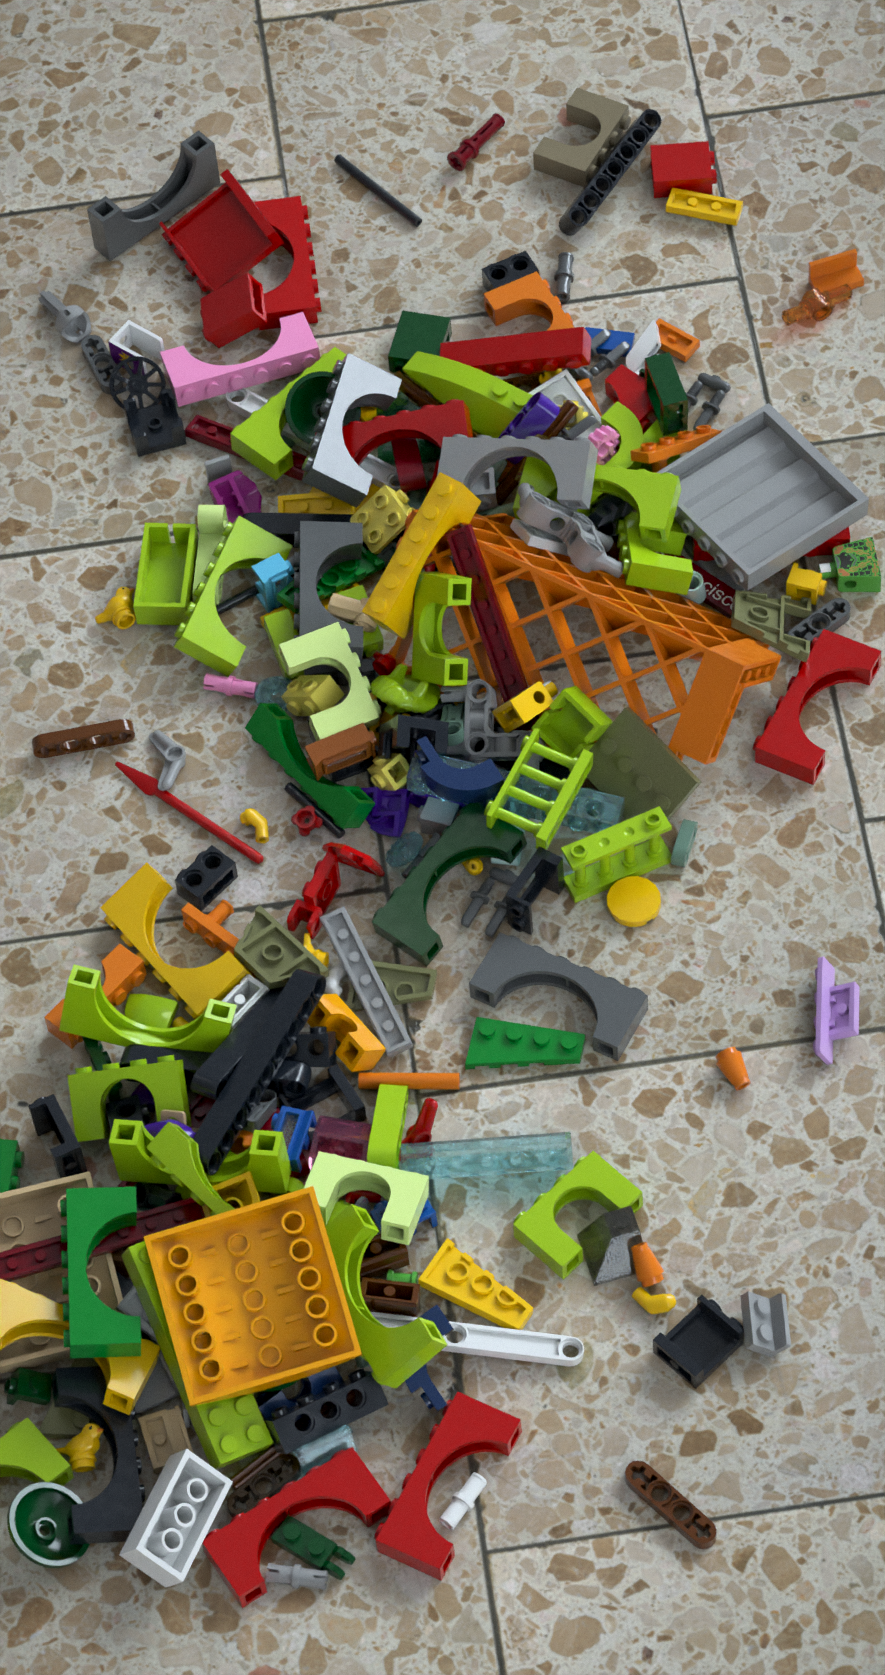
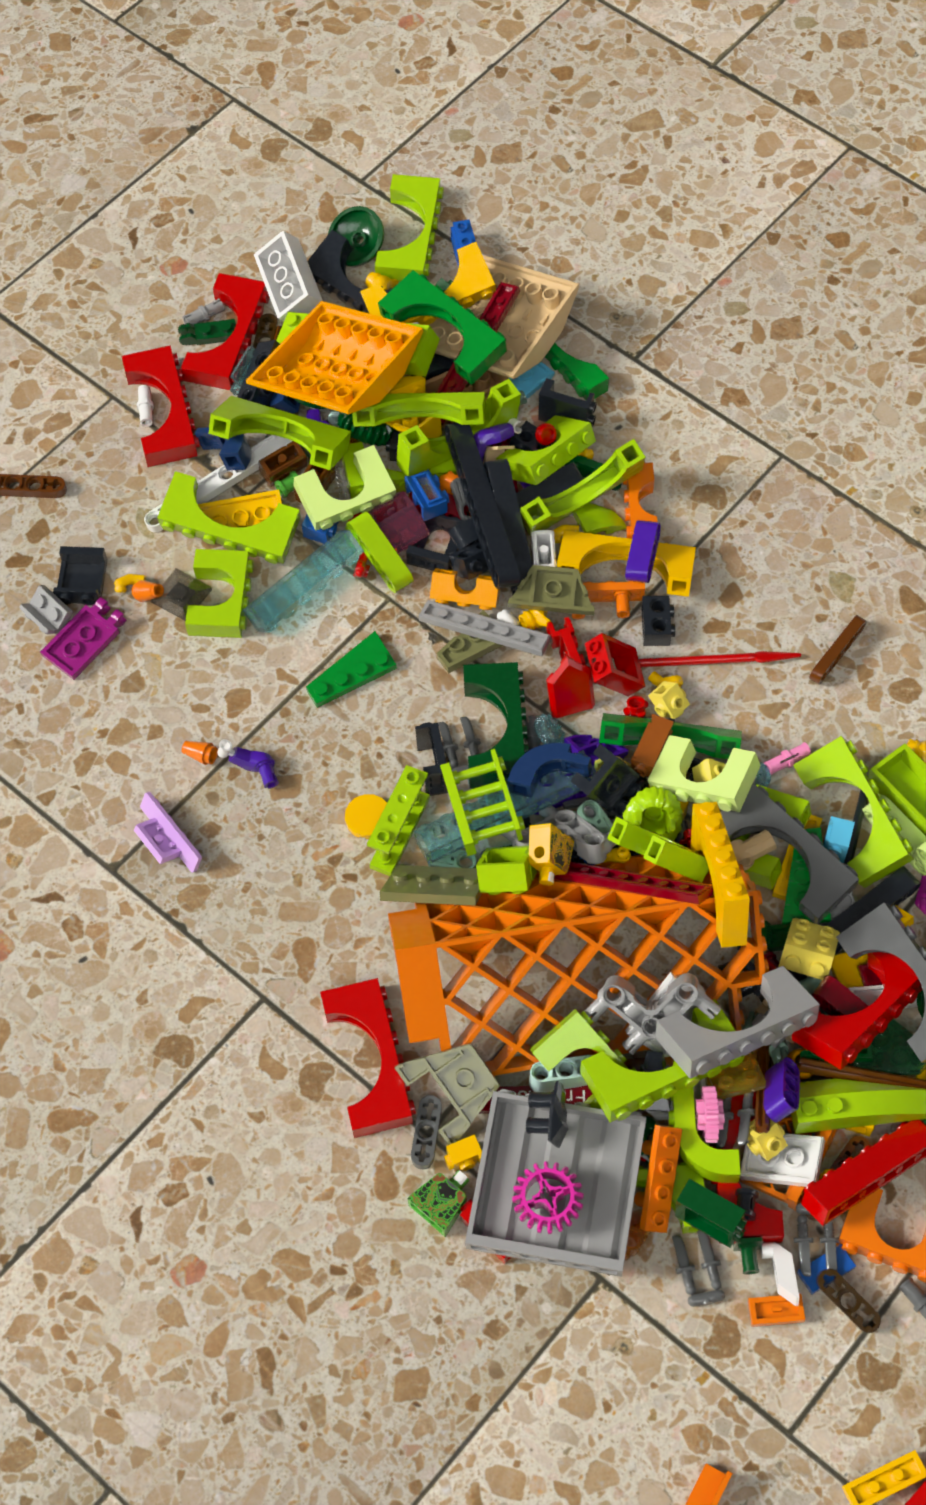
camera: 135 degrees right, 5 degrees up
(114, 1109) = (545, 434): none -> red plate
(156, 925) = (643, 551): none -> dark purple beam
(174, 758) = (767, 682): light grey piece -> none
(273, 804) = (669, 700): none -> light yellow brick
(289, 849) = (627, 676): none -> red window
(432, 1081) = (399, 598): orange piece -> none
(482, 1230) = (266, 539): none -> lime arch
(517, 965) = (315, 732): dark grey arch -> none
(612, 316) = (857, 1320): none -> dark brown beam
(630, 391) = (746, 1200): none -> black bush
(684, 843) = (368, 878): sand green beam -> none
(689, 1018) = (251, 761): none -> dark purple arm
(728, 510) = (556, 1124): none -> black connector
(754, 1267) = (83, 638): none -> magenta tile
(779, 474) = (538, 1201): none -> dark pink gear
(817, 304) = (694, 1448): clear orange pin -> none

